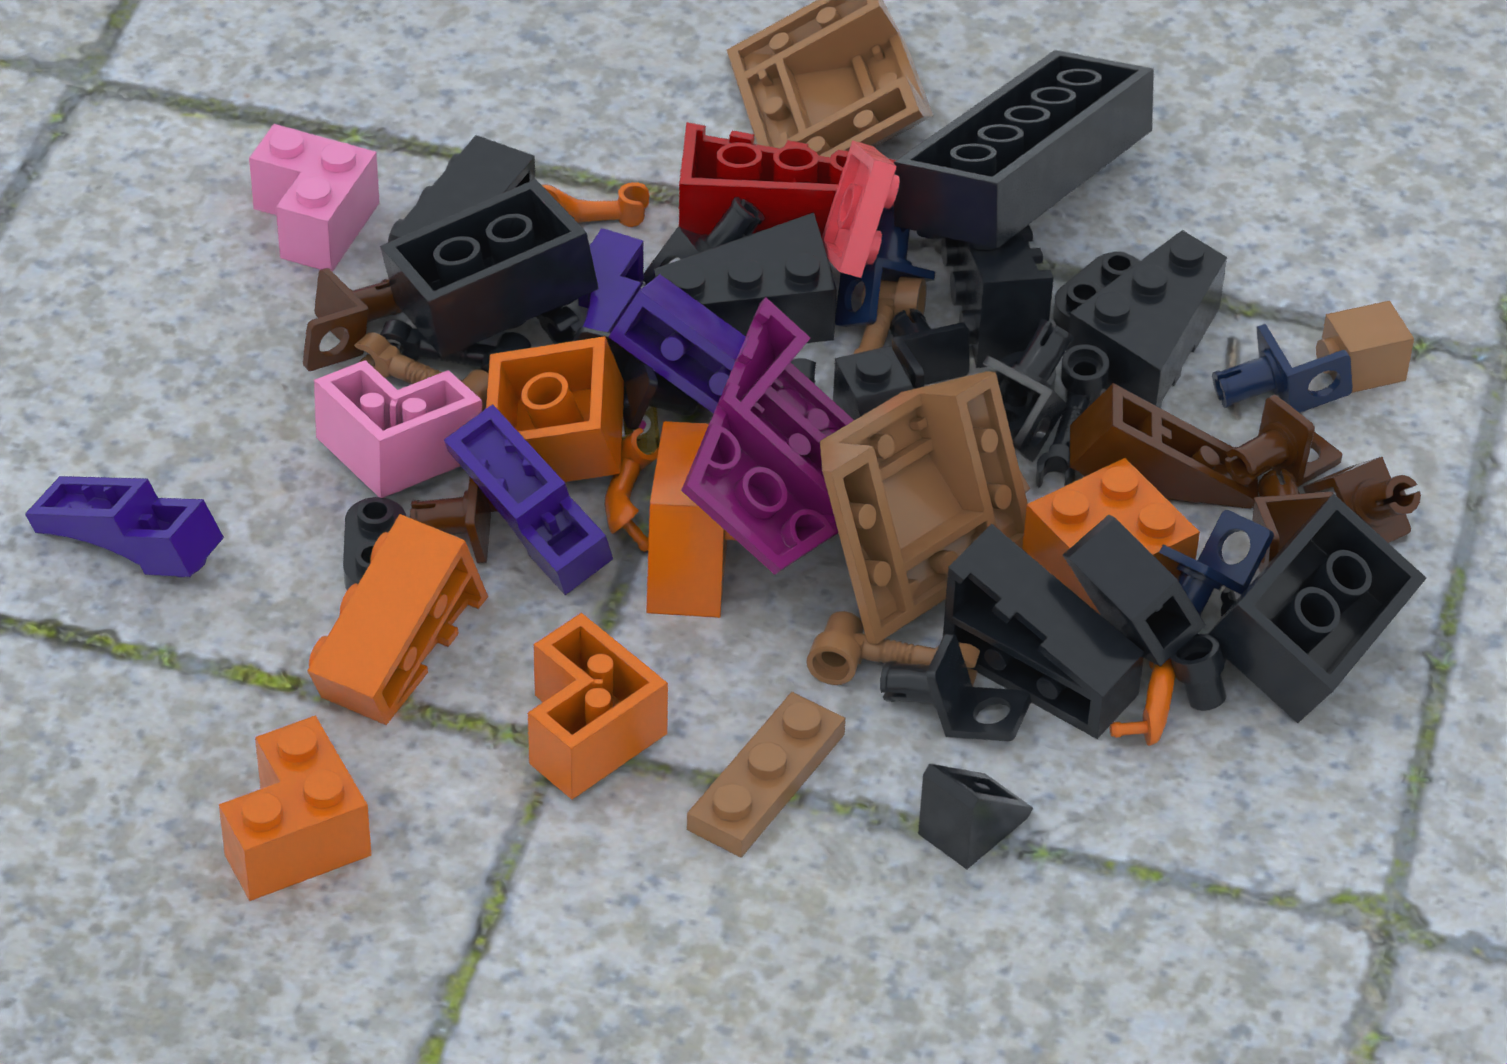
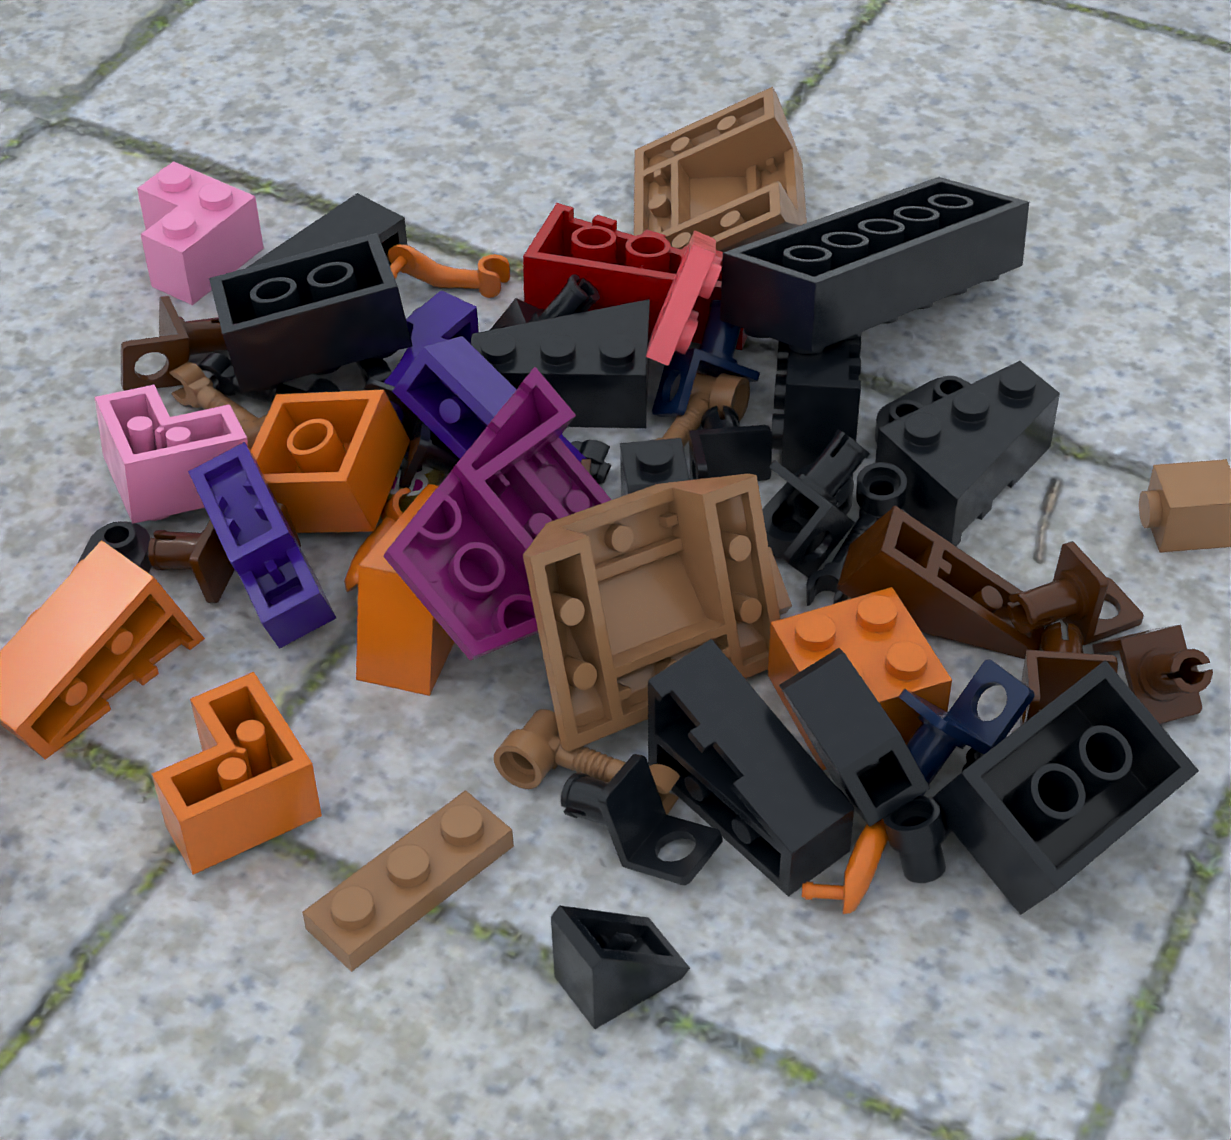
camera: 15 degrees right, 0 degrees up
(1275, 374) = (1085, 520): dark blue bracket -> none

